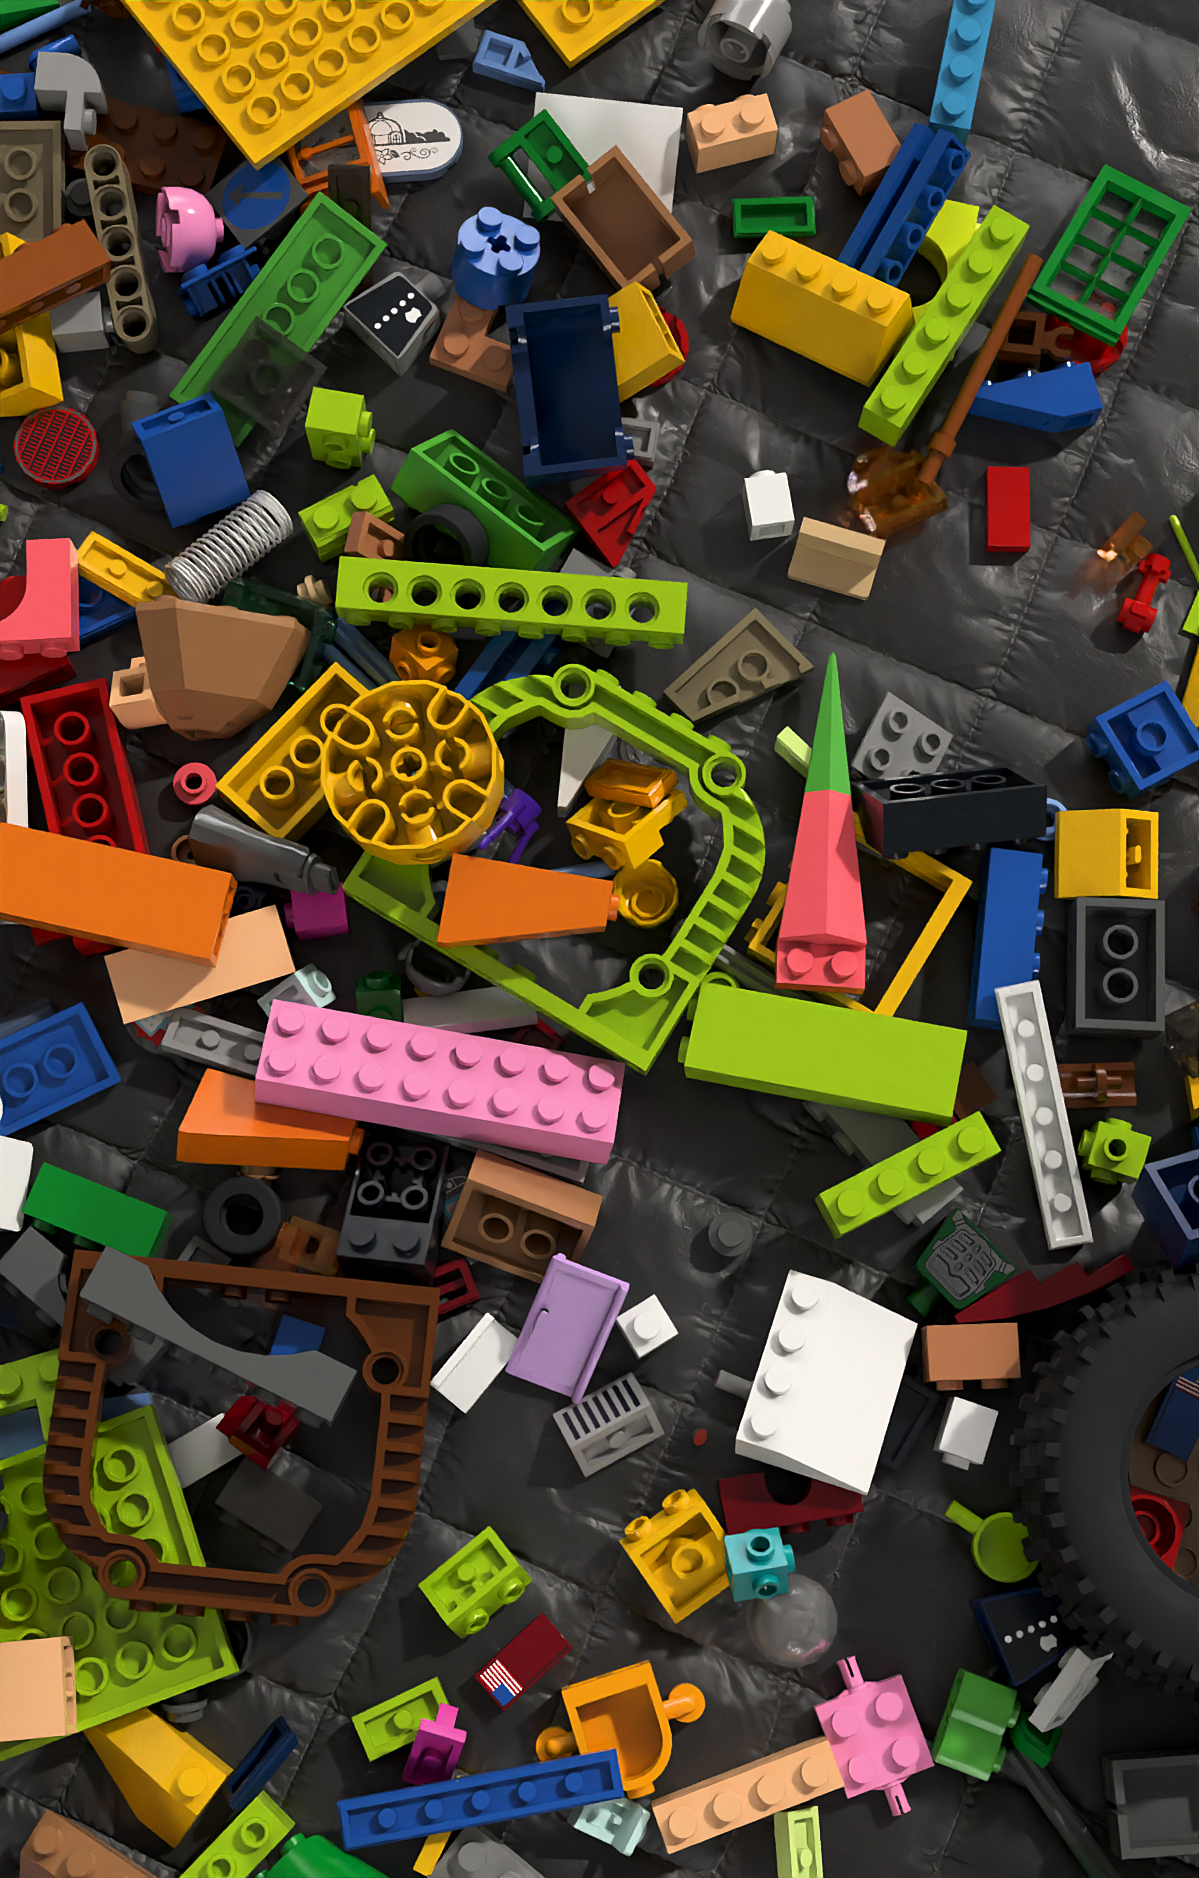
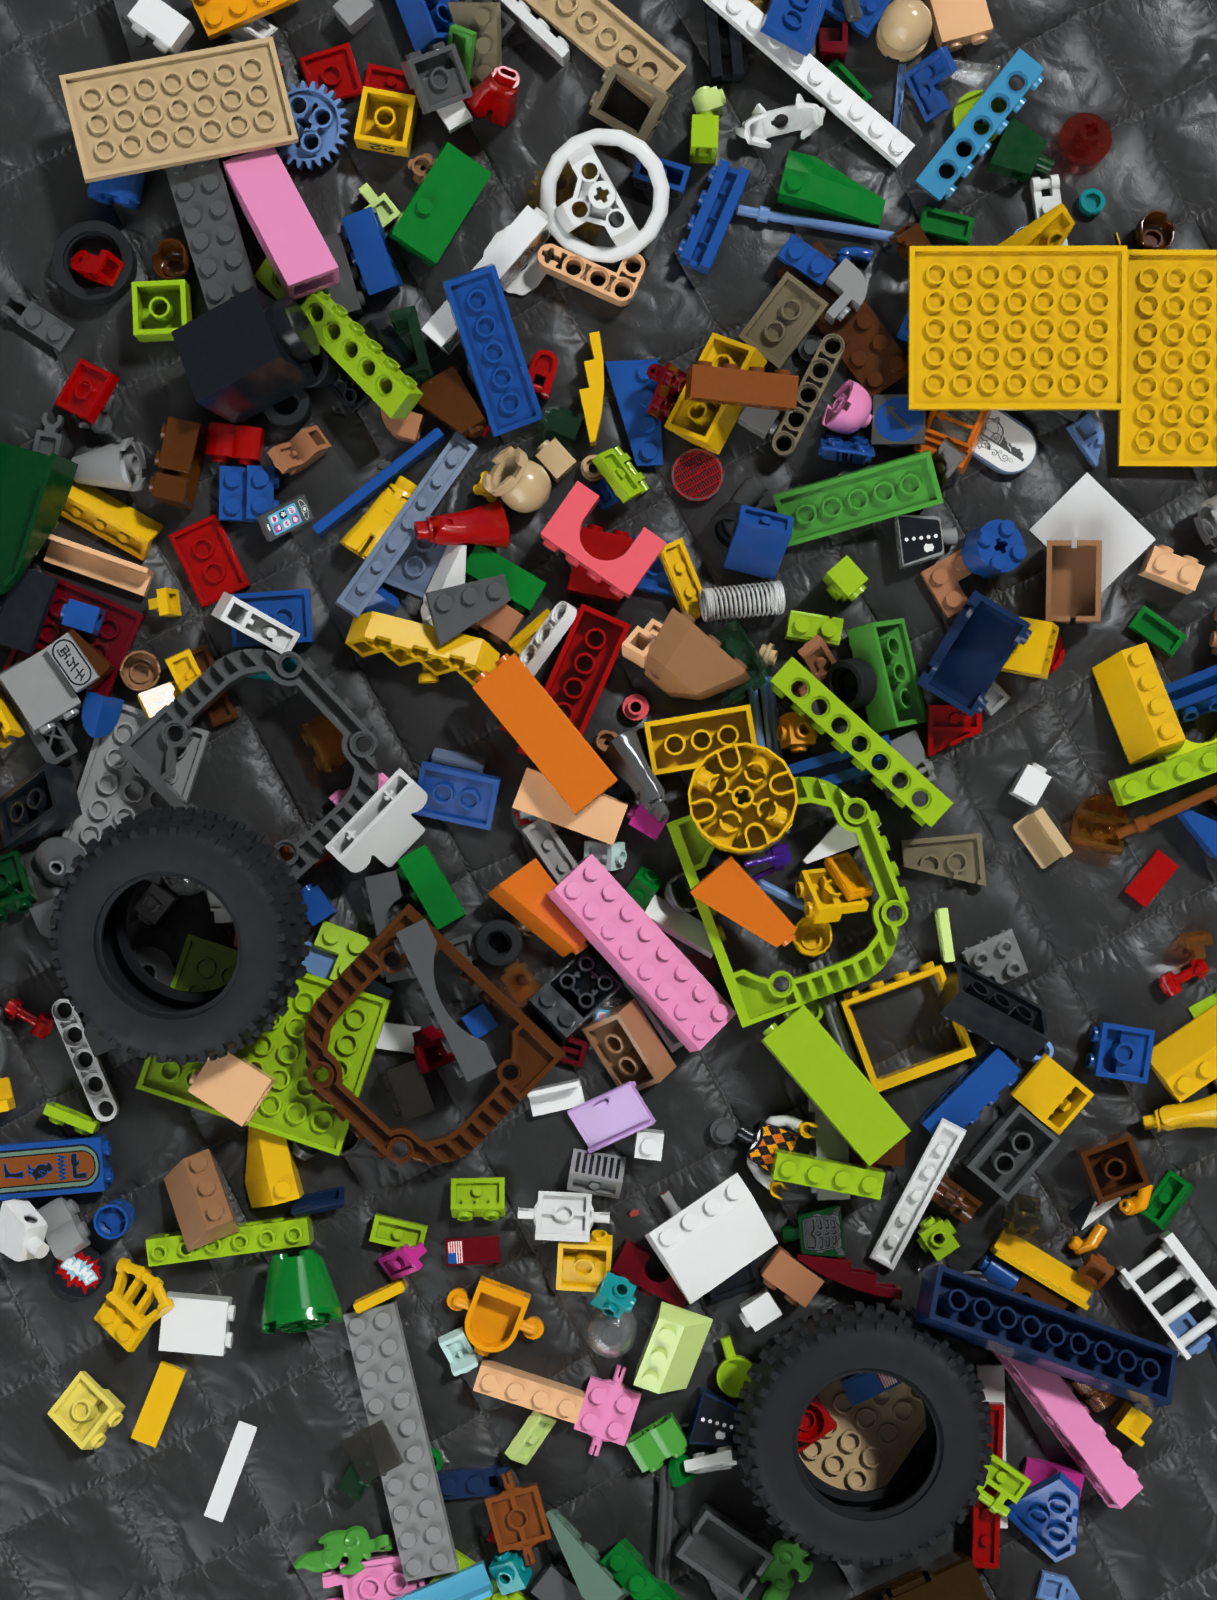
camera: 40 degrees right, 10 degrees up
(265, 379) = (826, 529): clear smoke brick -> none
(480, 1799) = (406, 1299): blue tile -> none
(549, 152) = (1067, 514): green plate -> none
(607, 1513) = (563, 1216): none -> white plate
(792, 1207) = (776, 1132): none -> torso
(822, 914) = (891, 1013): coral plate -> none
(892, 1578) = (671, 1349): none -> yellowish green slope

